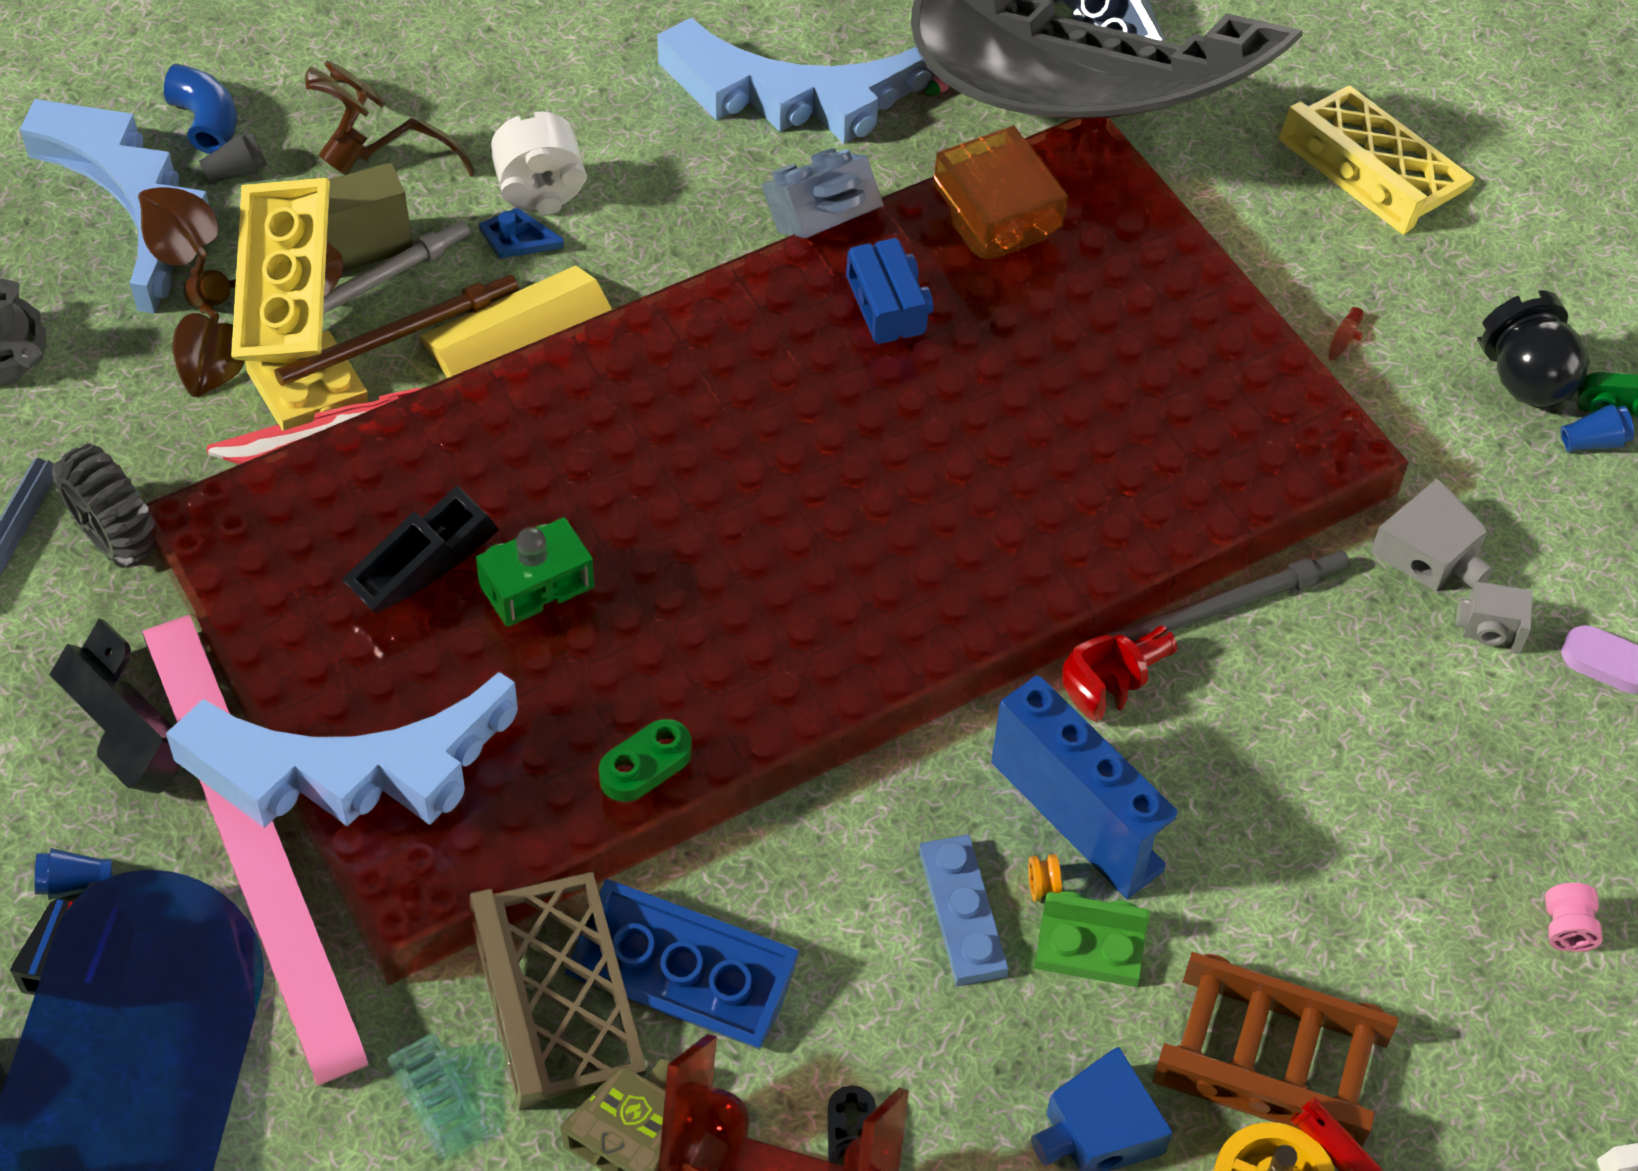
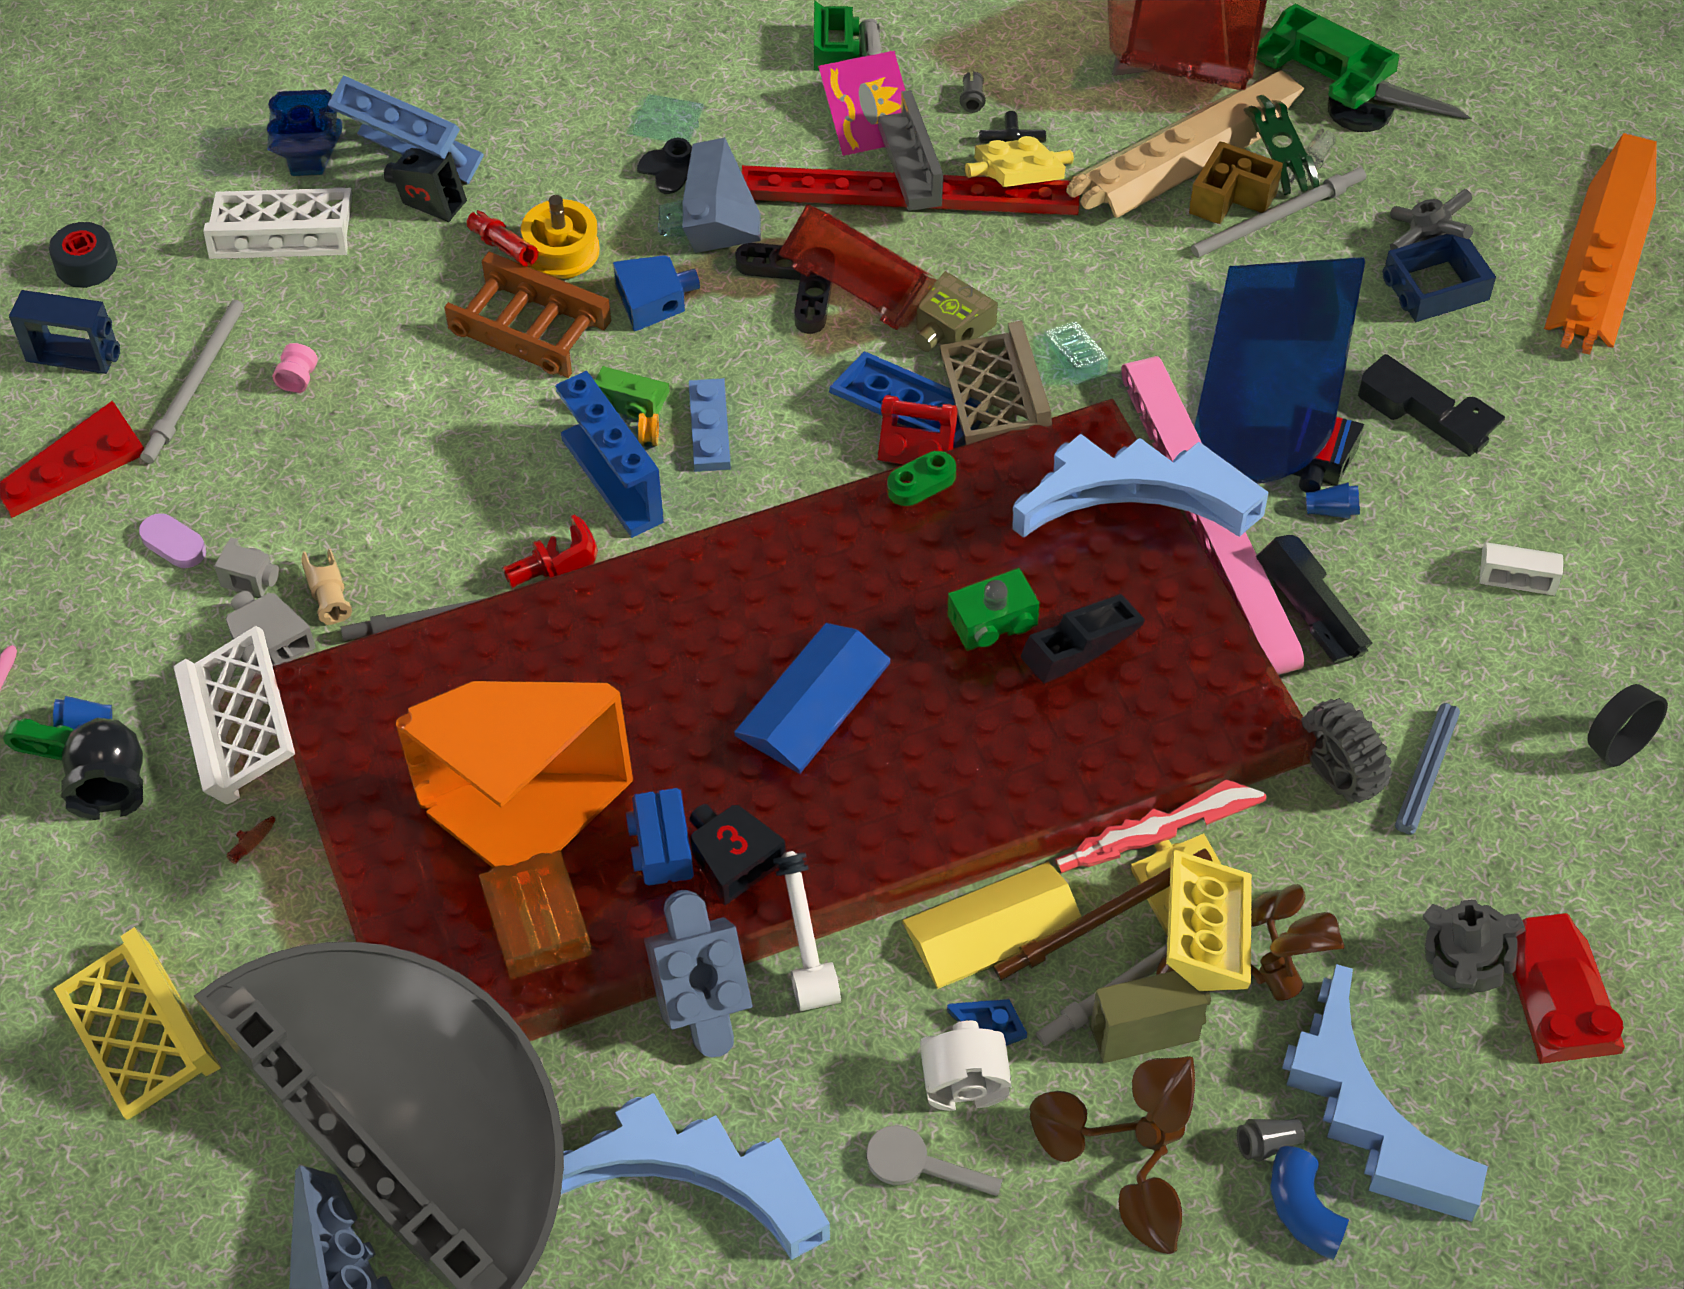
camera: 170 degrees left, 0 degrees up
(594, 119) = (900, 1156): none -> light grey piece
(680, 885) = (906, 444): none -> red plate
(708, 240) = (814, 983): none -> white piece
(748, 469) = (813, 696): none -> blue slope
(805, 284) = (733, 849): none -> black torso
(1062, 264) = (517, 763): none -> orange windscreen
(1386, 608) = (327, 589): none -> tan piece
(1446, 424) = (209, 726): none -> white fence

